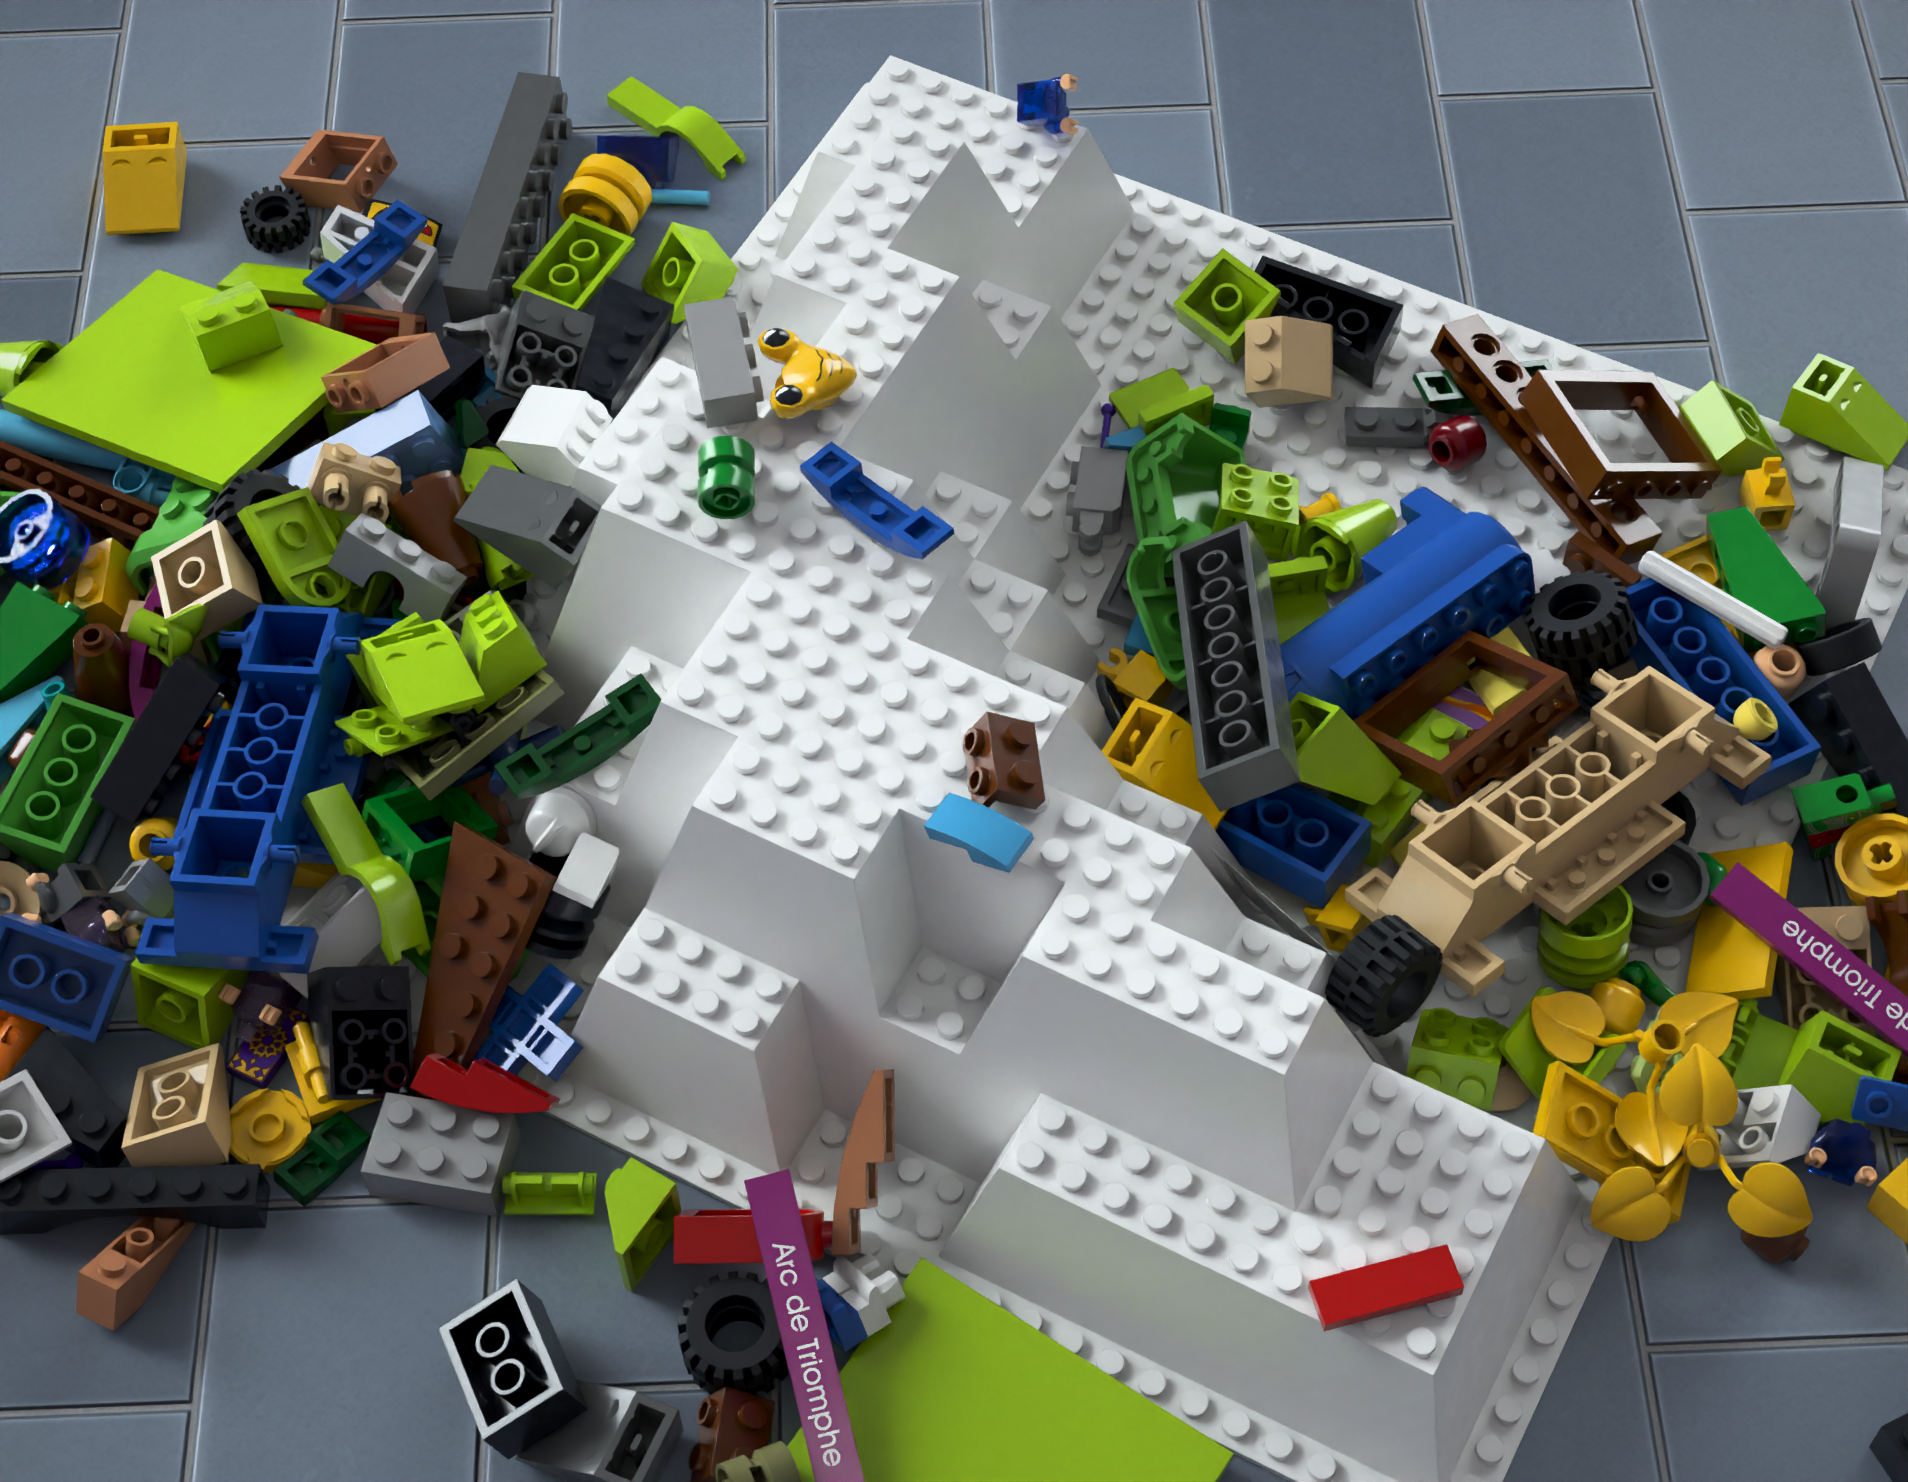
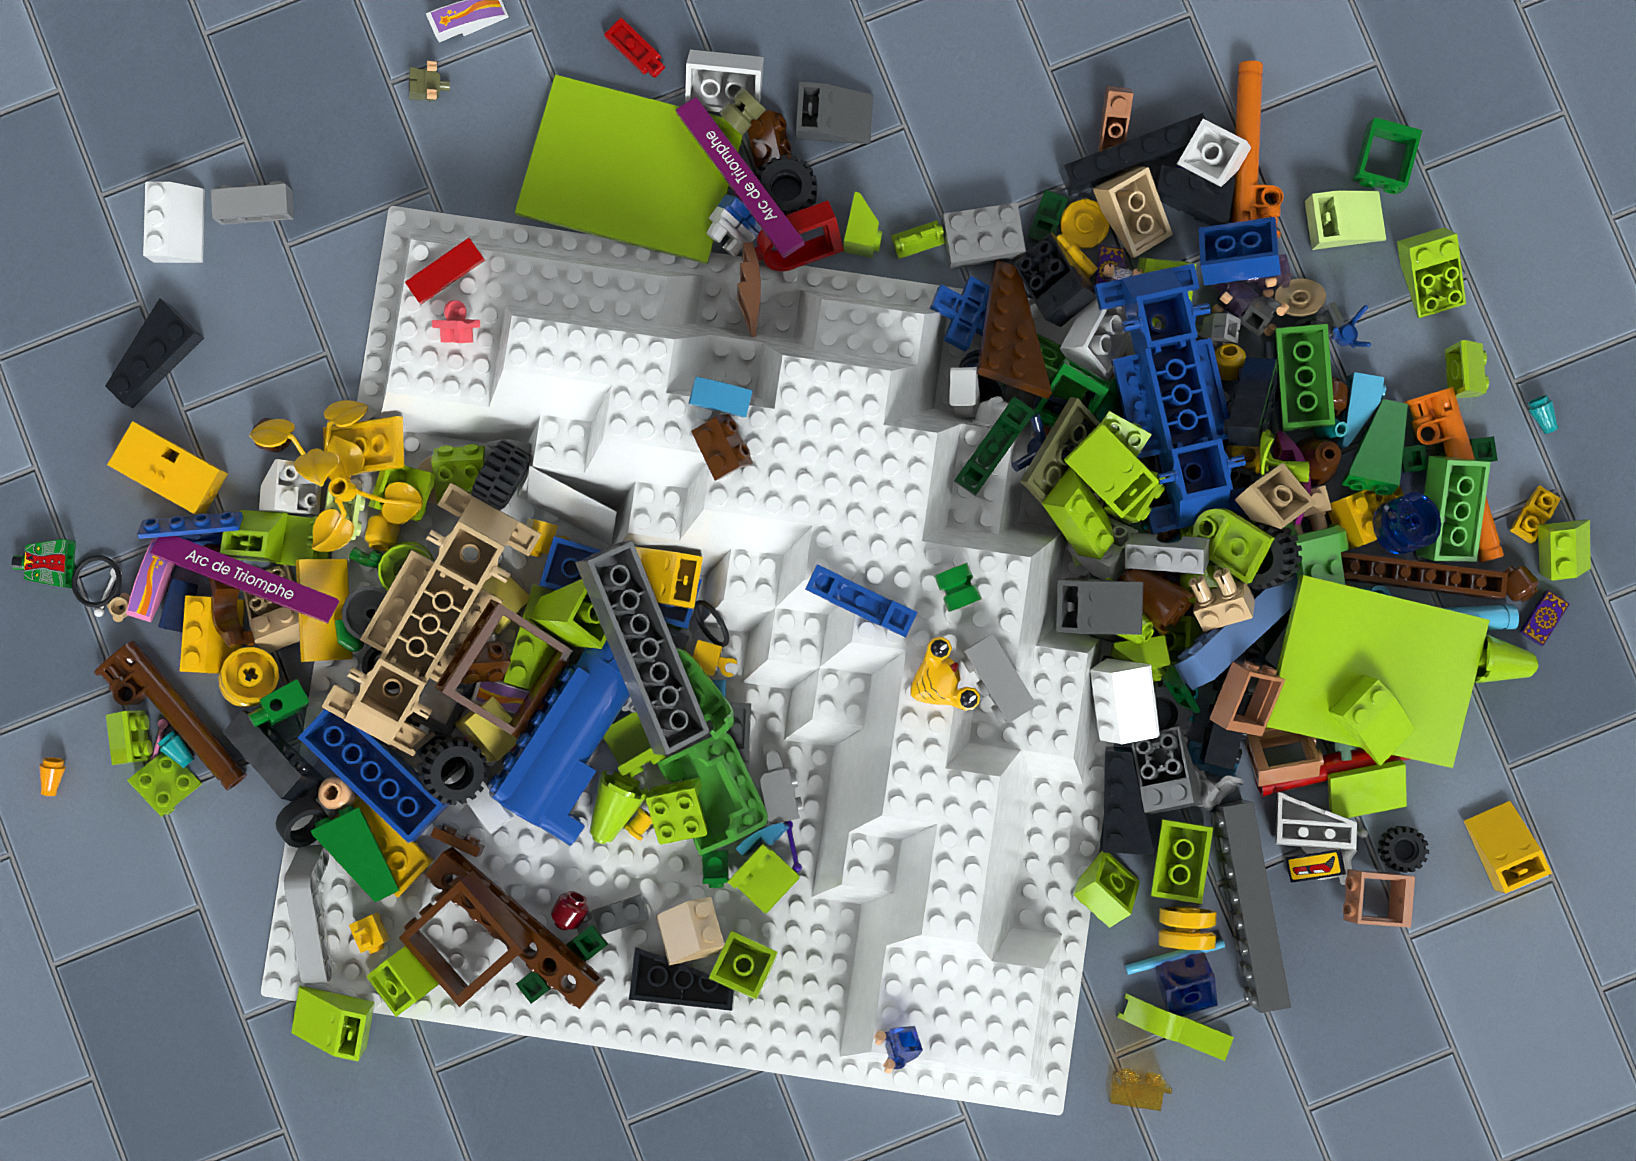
camera: 160 degrees right, 30 degrees up
(358, 855) = (1091, 358): lime piece -> none
(369, 258) = (1314, 808): blue slope -> none
(481, 1087) = (972, 267): red slope -> none
(512, 1369) = (889, 126): black brick -> none
(752, 72) = (1138, 1090): none -> clear yellow bracket
(1392, 1184) = (456, 327): none -> coral hips
(1713, 599) = (380, 818): white axle -> none
(1750, 722) = (339, 736): light yellow piece -> none
(1843, 1152) = (243, 494): clear blue piece -> none

